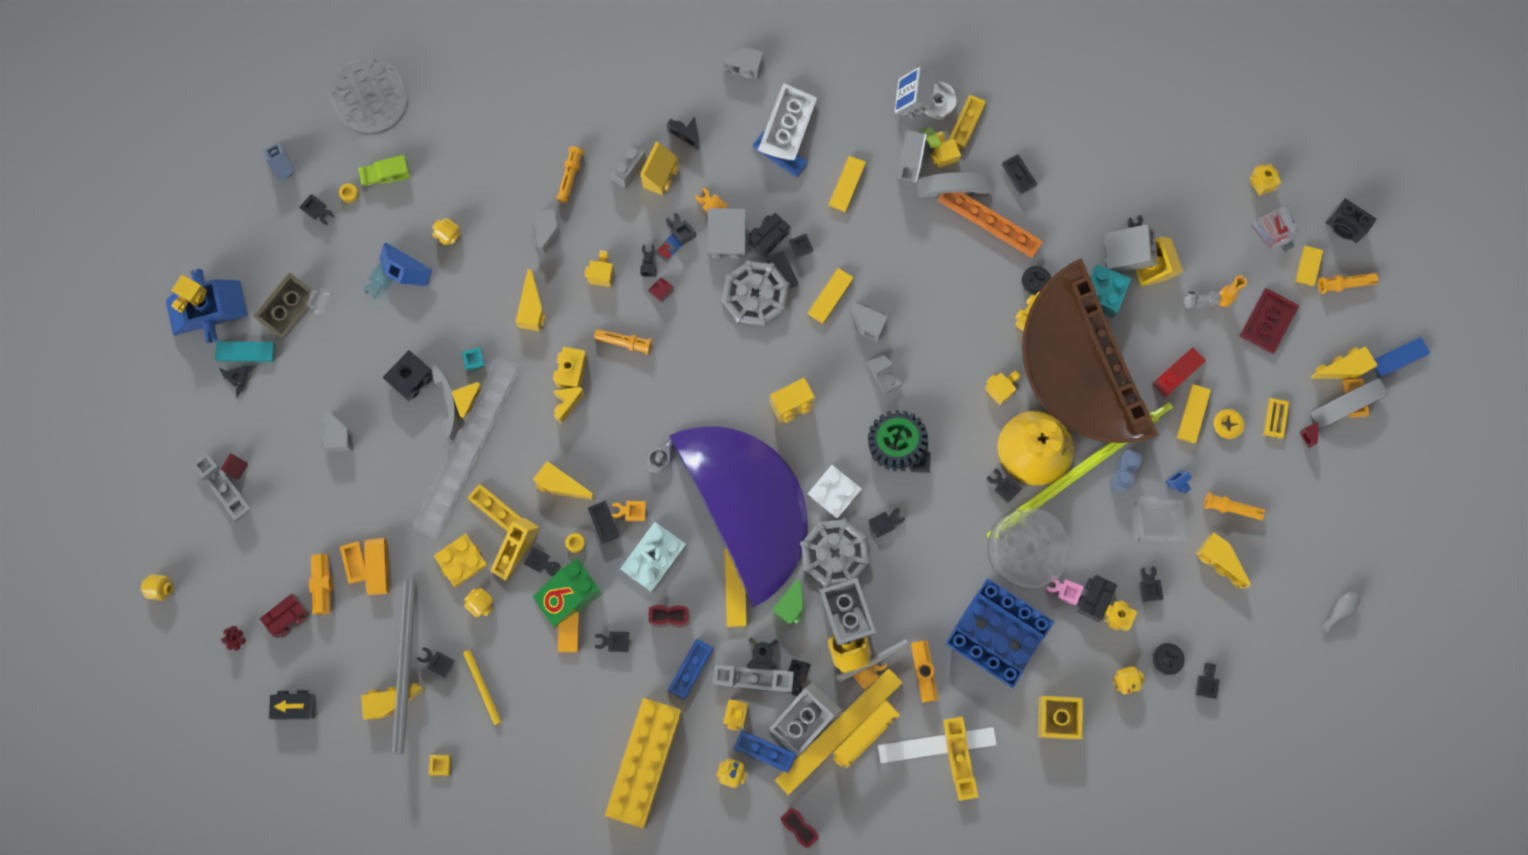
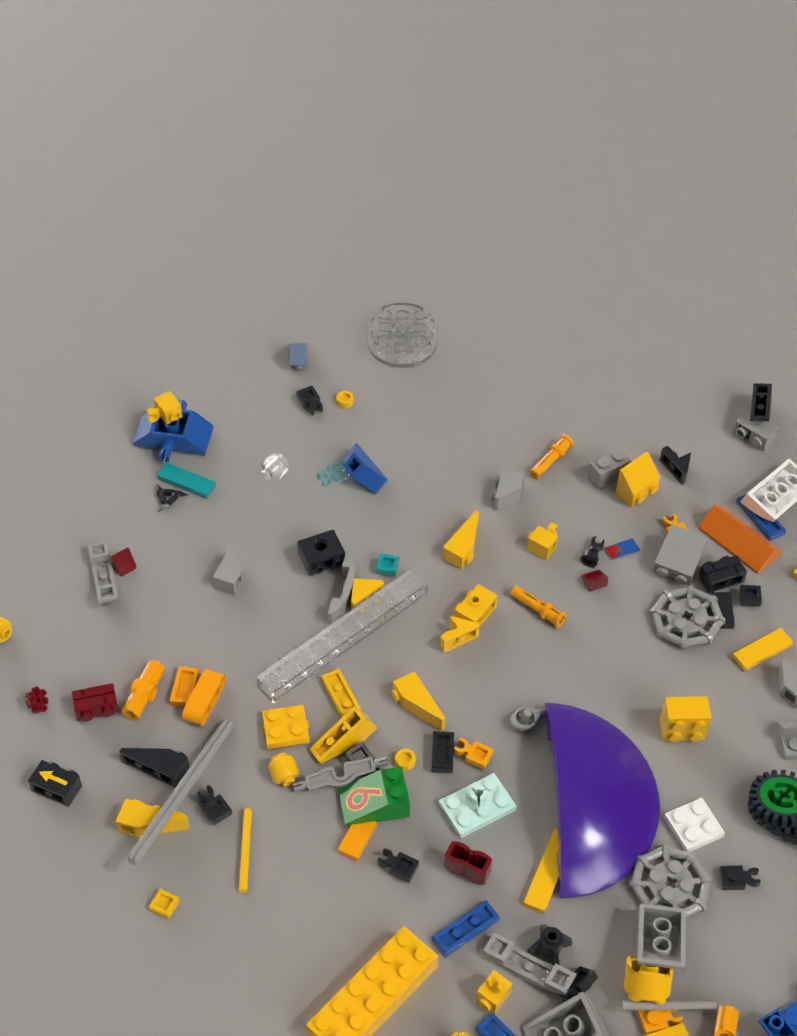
camera: 25 degrees right, 25 degrees down
(283, 305) = (240, 456): dark tan slope -> none
(376, 645) = (157, 762): none -> black slope
(385, 171) = (386, 394): lime piece -> none
(446, 231) = (416, 457): yellow head -> none
(536, 577) = (328, 776): none -> light grey piece
(681, 230) = (636, 539): black plate -> none
(738, 32) = (761, 402): none -> black slope
(770, 187) = (739, 538): none -> orange slope
(790, 605) = (599, 910): bright green slope -> none

